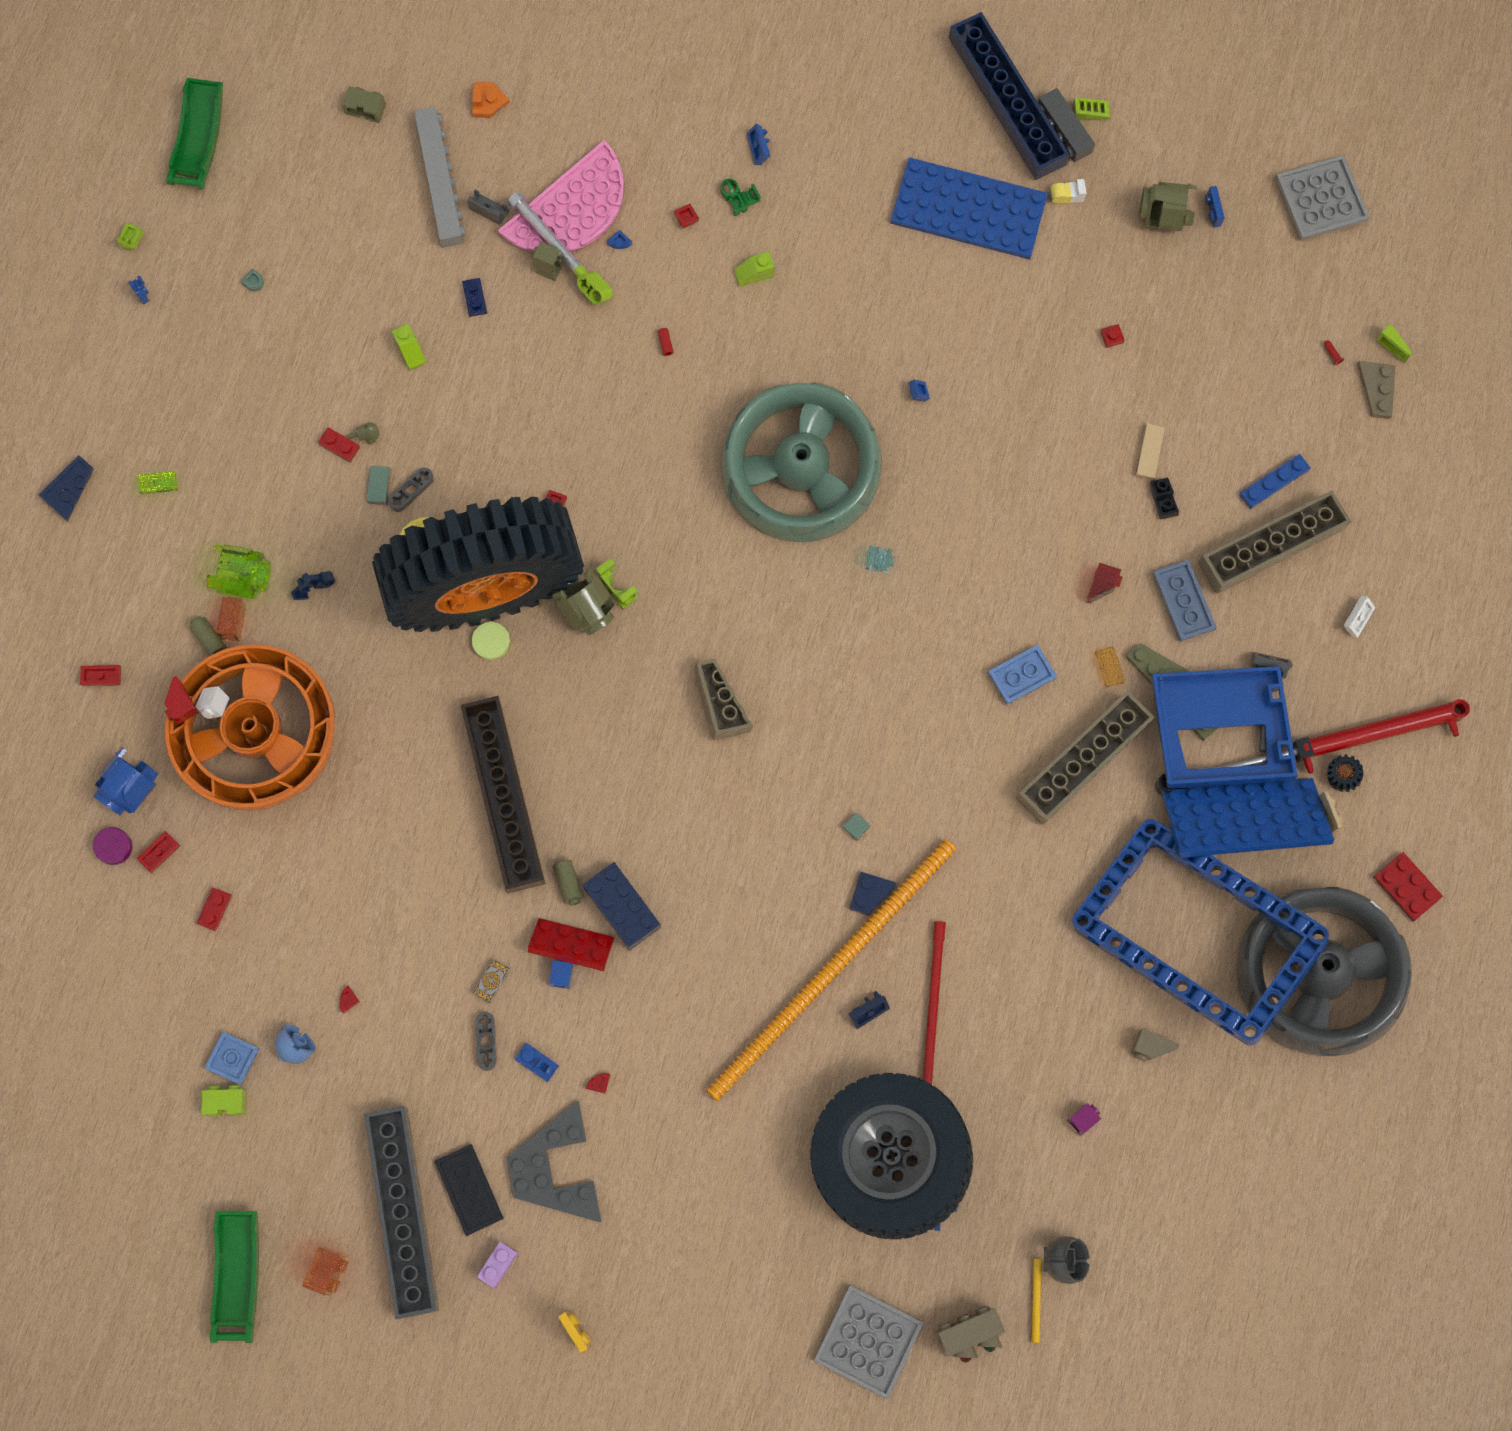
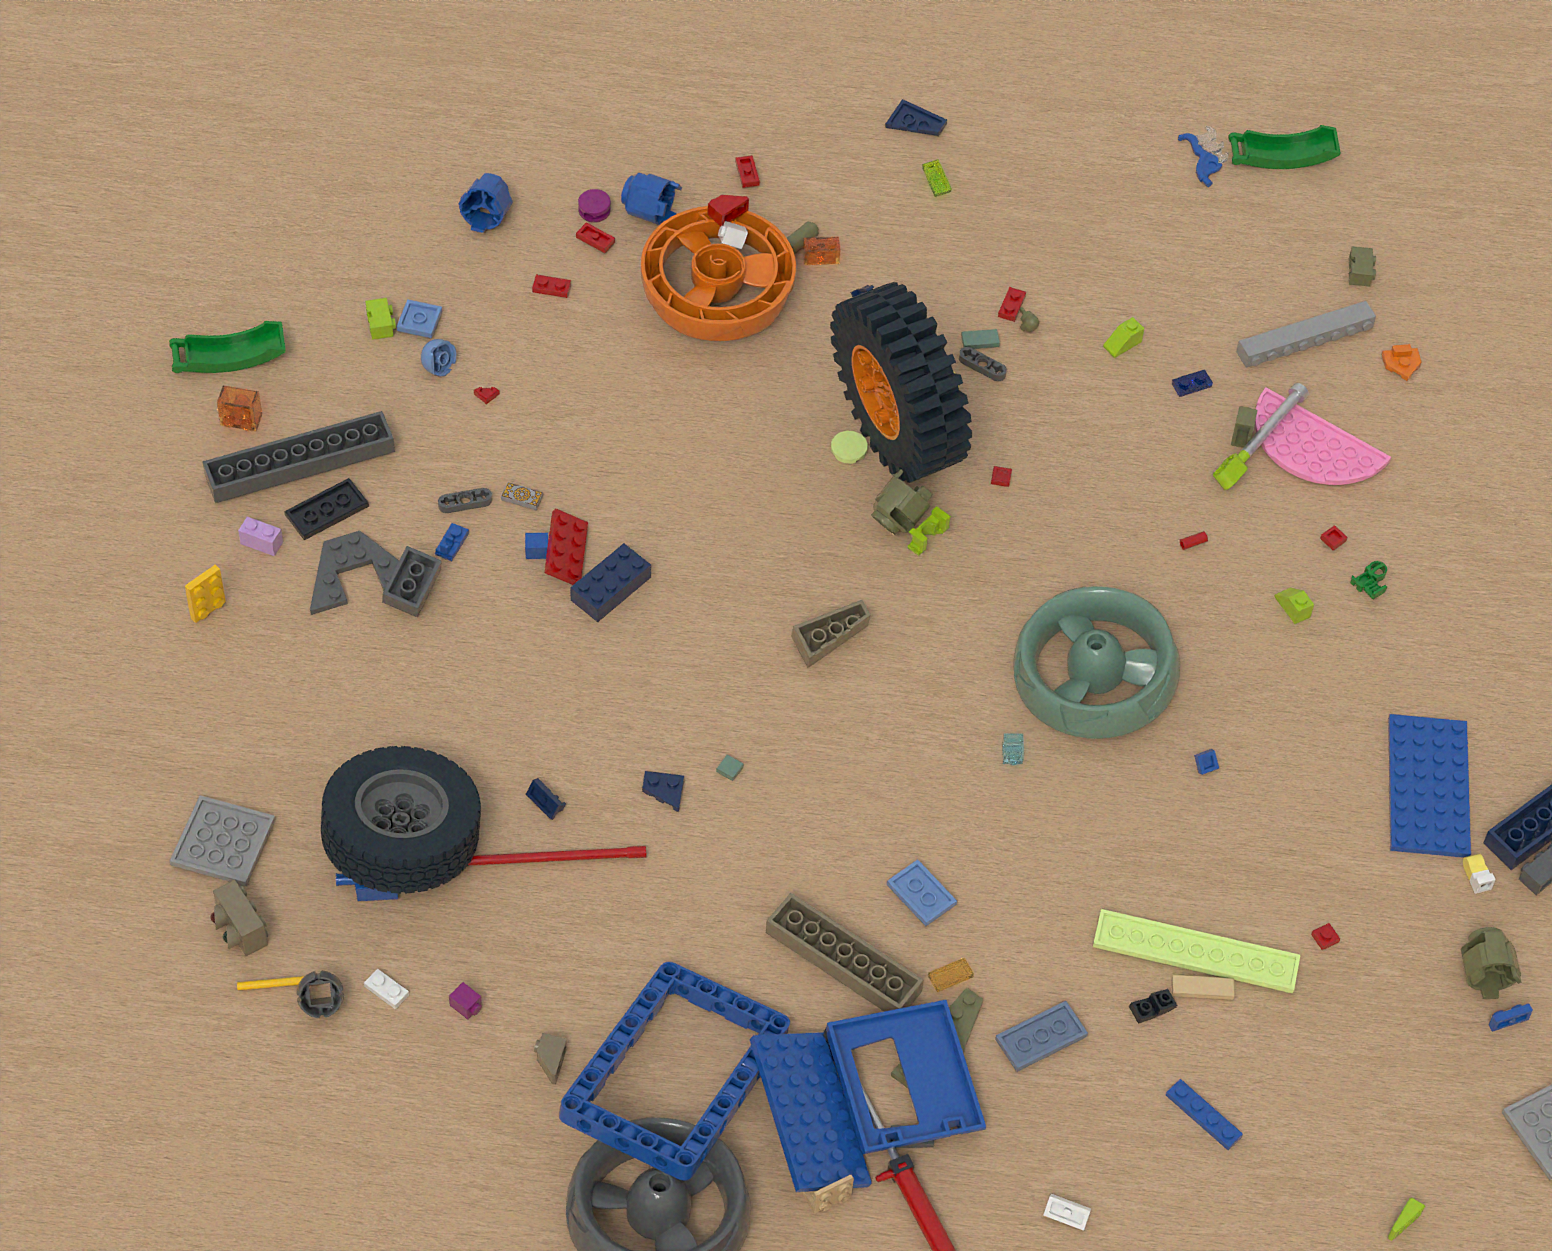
camera: 80 degrees right, 20 degrees down
(90, 962) = (488, 193): none -> blue piece
(130, 236) = (1167, 120): lime plate -> none
(140, 289) = (1117, 135): blue plate -> none
(180, 208) = (1209, 153): none -> piece
(240, 572) = (865, 243): clear neon green piece -> none
(253, 281) = (1155, 216): sand green tile -> none
(487, 207) = (1288, 376): dark grey hinge -> none
(503, 795) = (699, 473): dark brown brick -> none
(568, 882) = (630, 536): olive brick -> none
(591, 1109) = (411, 581): none -> dark grey brick
(599, 1083) = (439, 593): red tile -> none
(619, 241) = (1289, 488): blue tile -> none
(758, 144) = (1438, 586): blue plate -> none
(831, 970) = (583, 764): light orange piece -> none
(1057, 1194) = (386, 989): none -> white plate
(1104, 582) = (1040, 954): clear red slope -> none
(1114, 448) = (1197, 951): none -> yellowish green plate
(1264, 660) = (993, 1129): dark grey plate -> none
(1274, 542) = (1130, 1113): dark tan brick -> none
(1333, 352) = (1367, 1164): red piece -> none
(1345, 773) = (883, 1212): black wheel -> none
(1379, 387) = (1347, 1211): dark tan wing -> none

